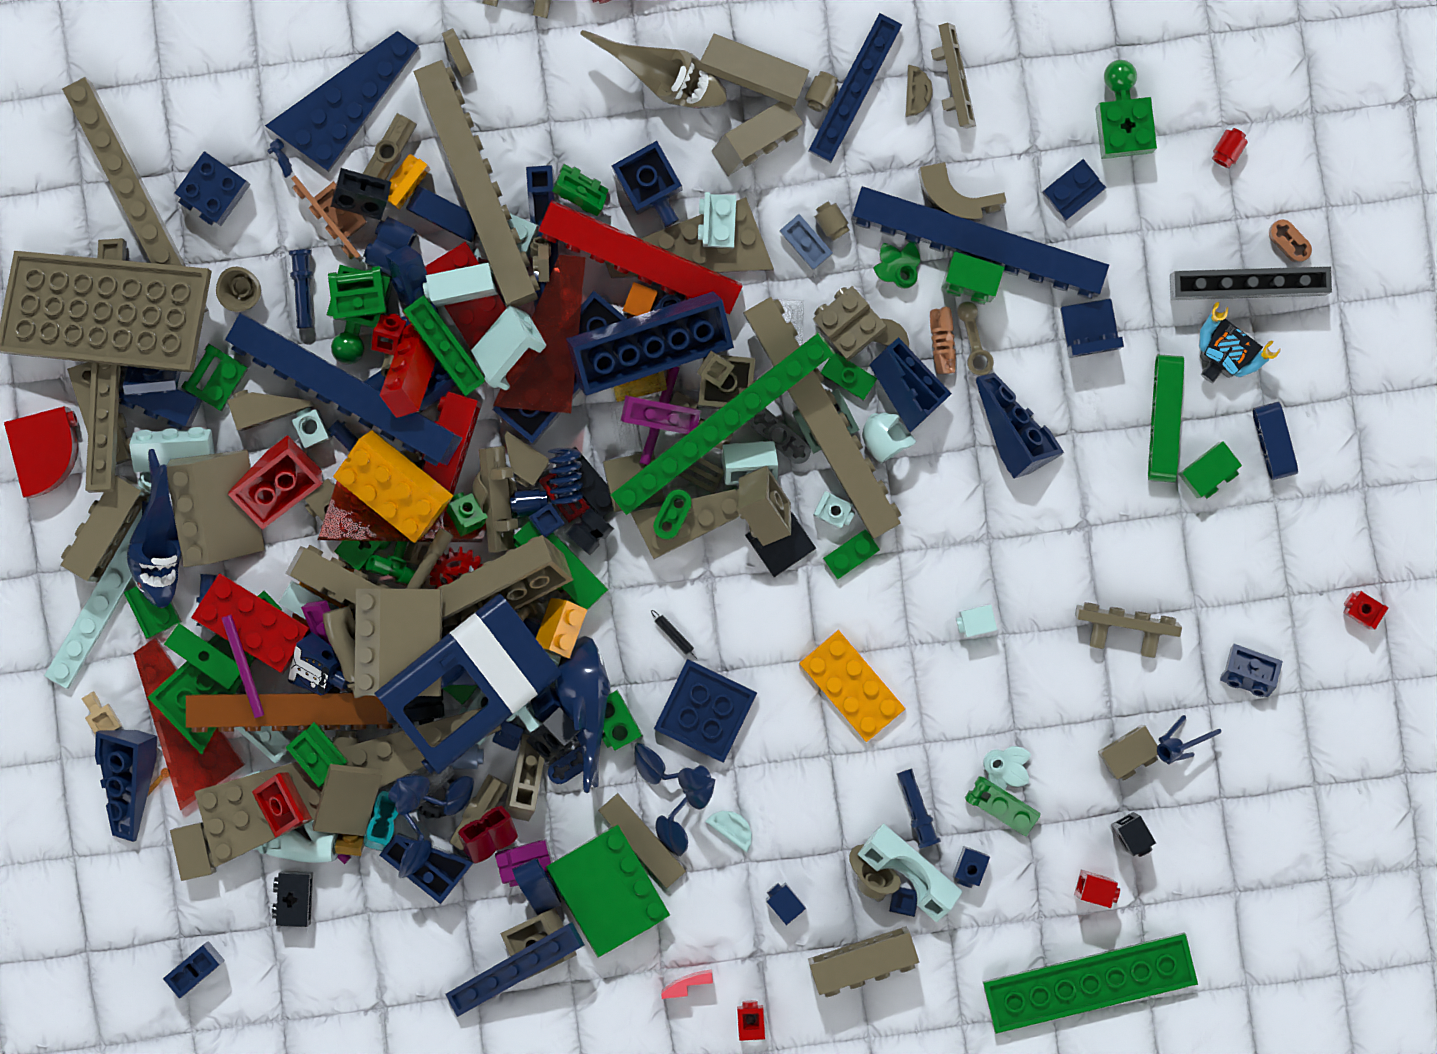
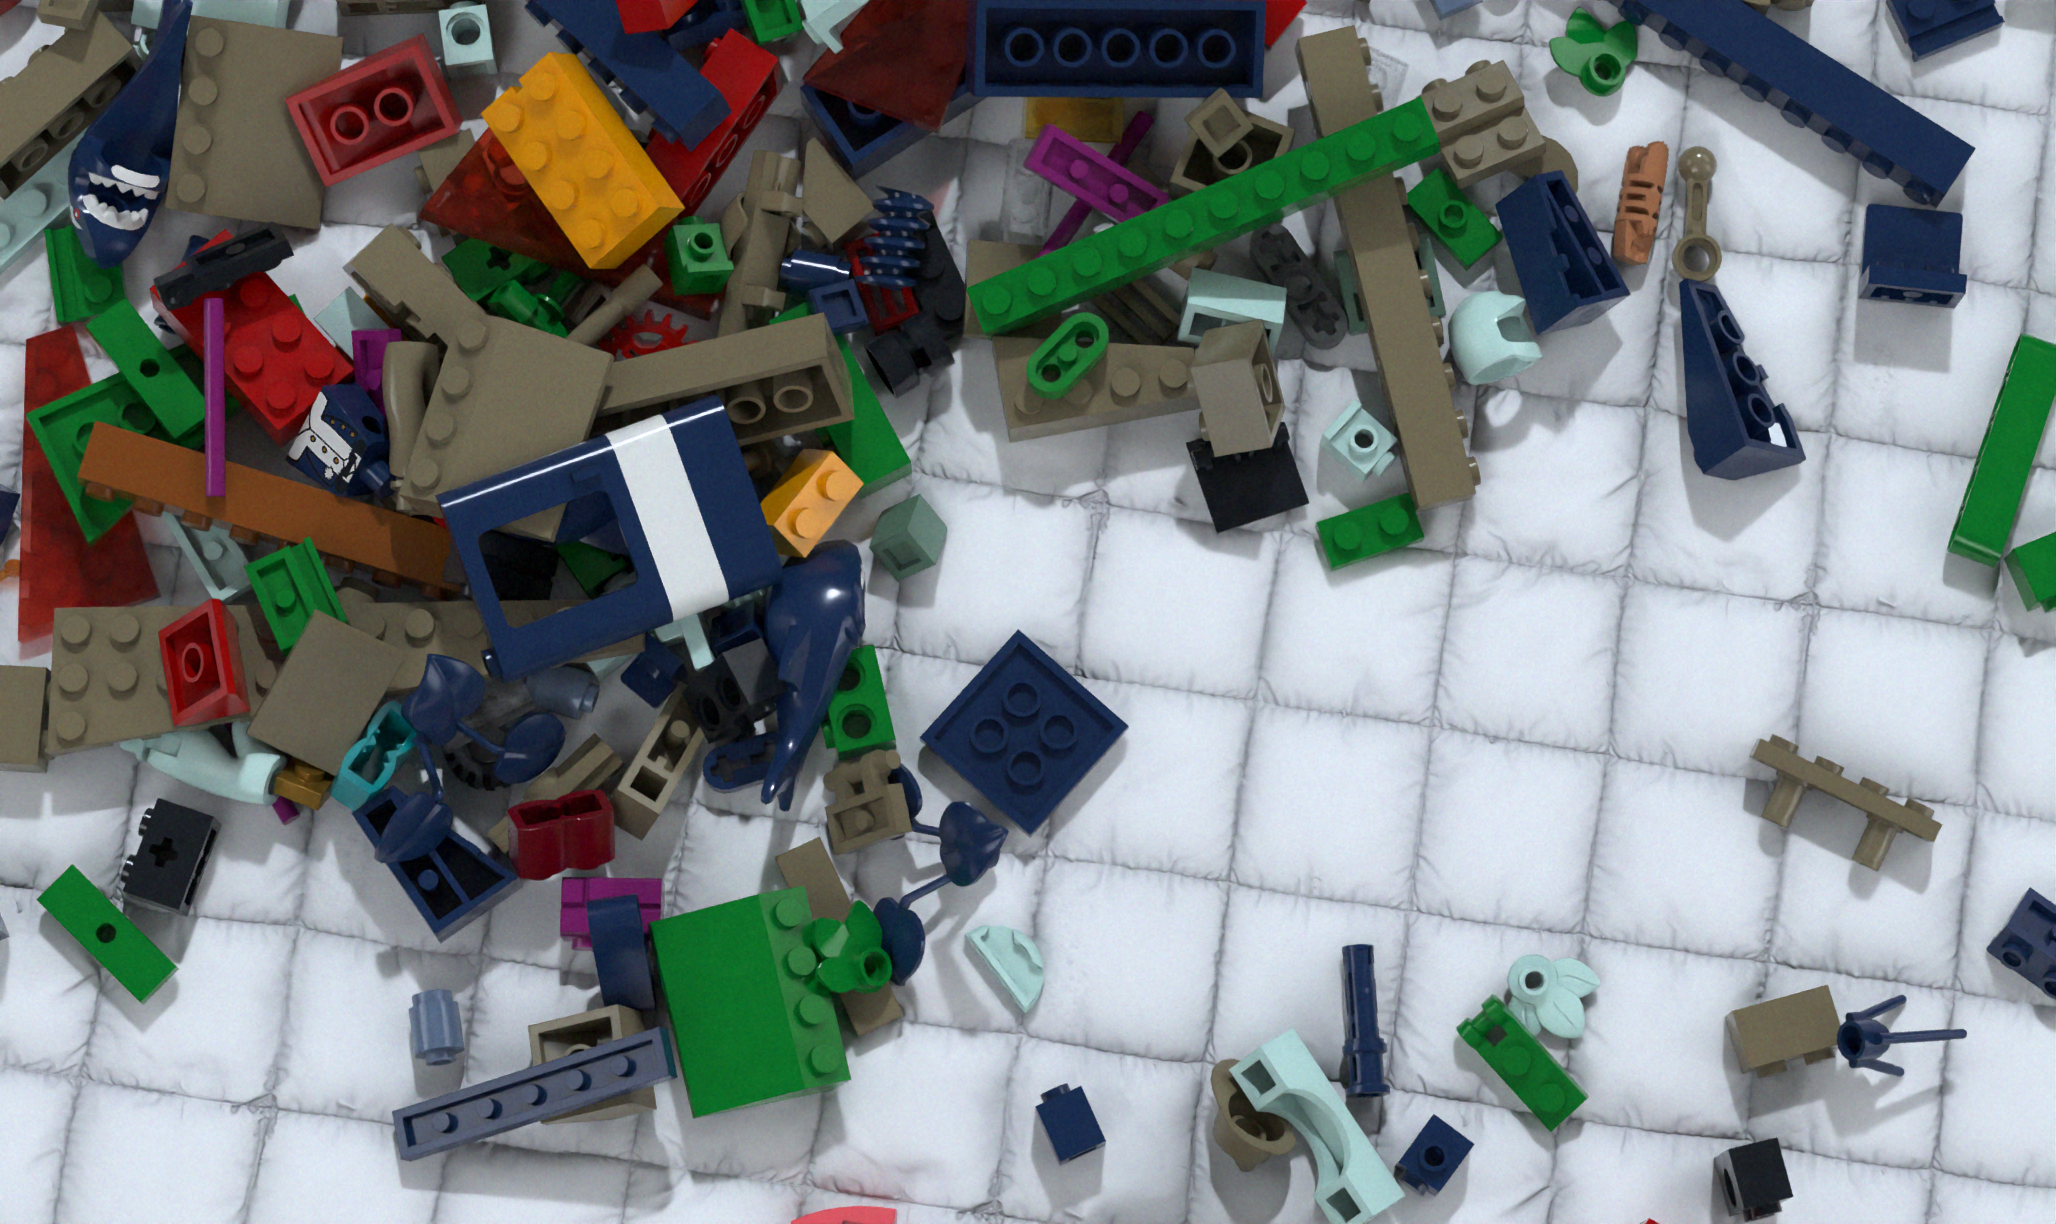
camera: 15 degrees right, 10 degrees down
(226, 596) = (223, 265): none -> black hinge
(259, 939) = (87, 914): none -> green tile
(343, 435) = (515, 58): dark blue pin -> none
(454, 945) = (436, 1027): none -> sand blue brick
(617, 626) = (908, 537): none -> sand green panel
(639, 779) = (867, 817): none -> dark tan plate
(648, 850) = (848, 949): none -> green plate
(673, 634) = (1006, 583): black piece -> none
(852, 685) = (1305, 767): light orange plate -> none
(904, 902) = (1290, 1188): dark blue tile -> none
(972, 278) = (1722, 103): green brick -> none
(976, 621) = (1566, 712): light aqua brick -> none

